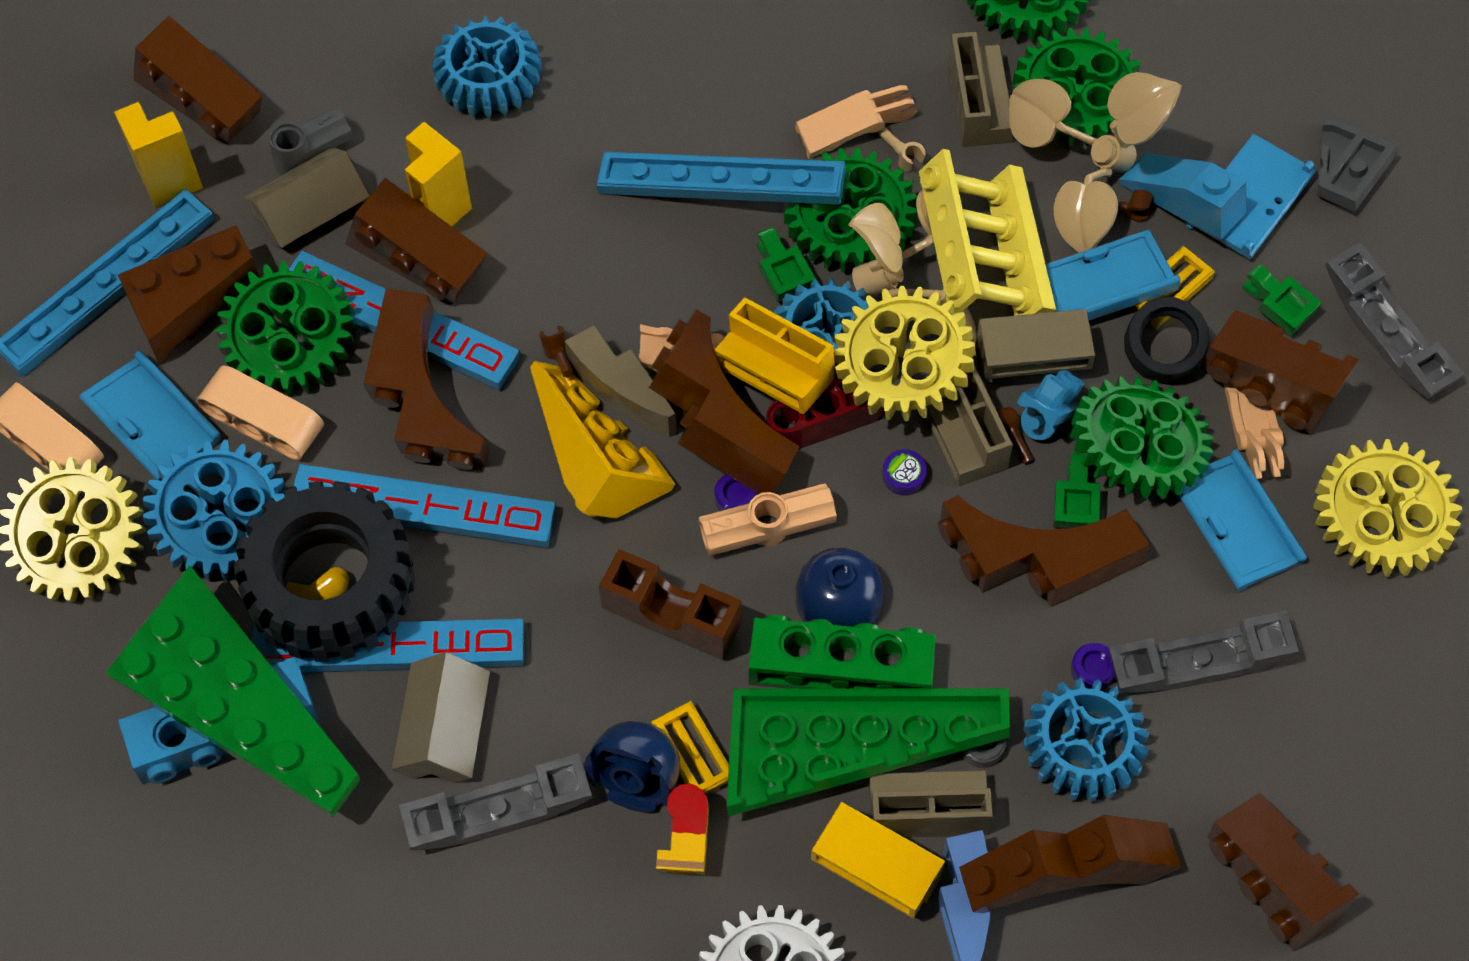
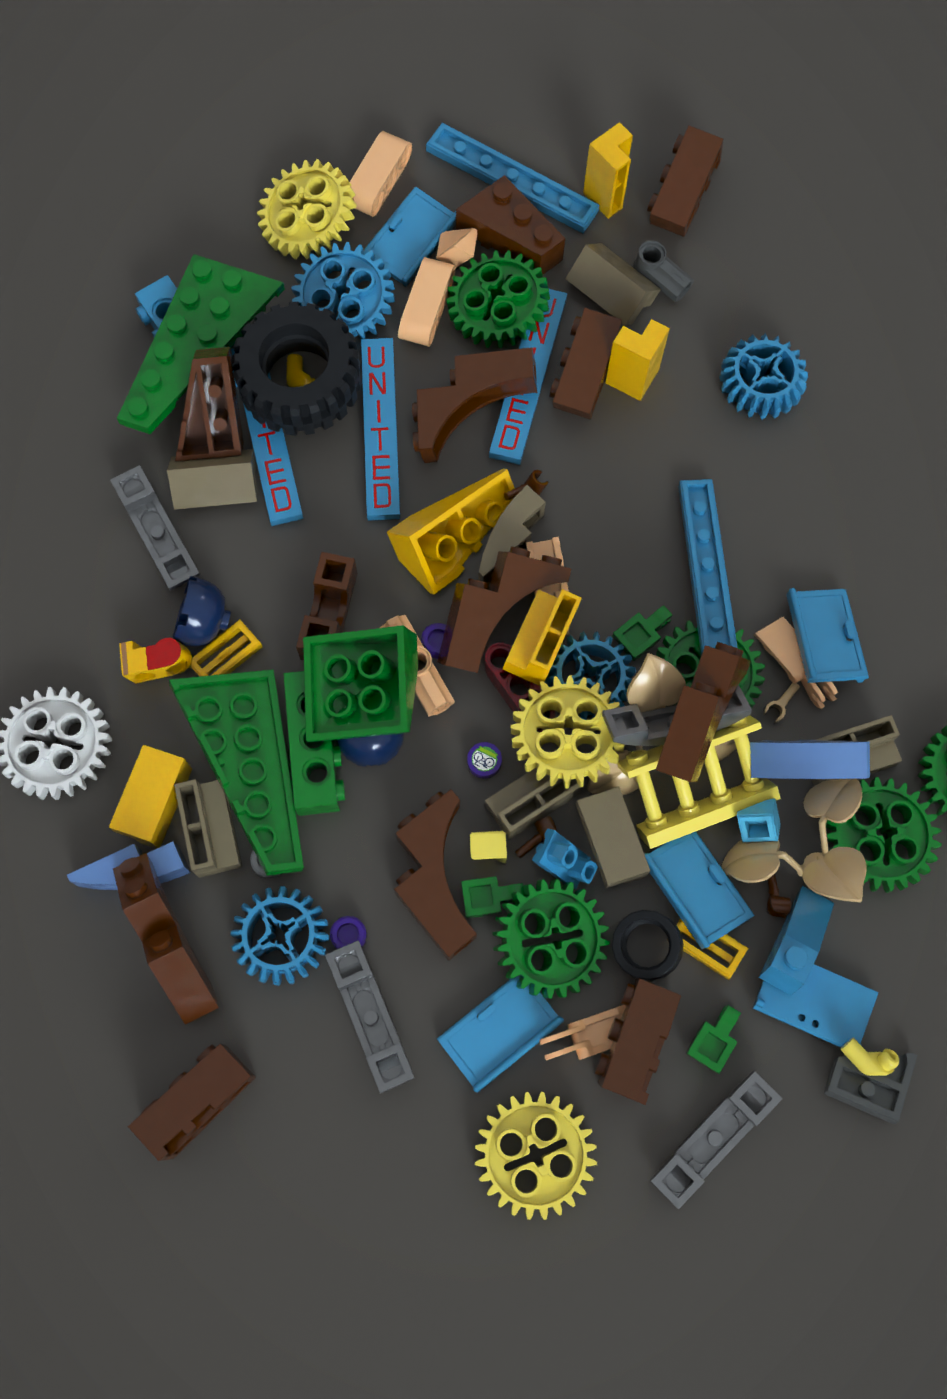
camera: 75 degrees right, 10 degrees up
(192, 359) = (457, 246): none -> light nougat slope
(351, 690) = (211, 409): none -> reddish brown wedge
(797, 567) = (359, 683): none -> green slope
(813, 84) = (822, 628): none -> dark azure door
(921, 226) = (651, 727): none -> flat silver slope
(925, 190) = (701, 711): none -> reddish brown arch
(991, 117) = (810, 759): none -> medium blue slope
(1018, 481) = (488, 845): none -> light yellow slope
(1046, 193) = (760, 822): none -> medium azure slope
(1331, 153) = (870, 1062): none -> light yellow arm

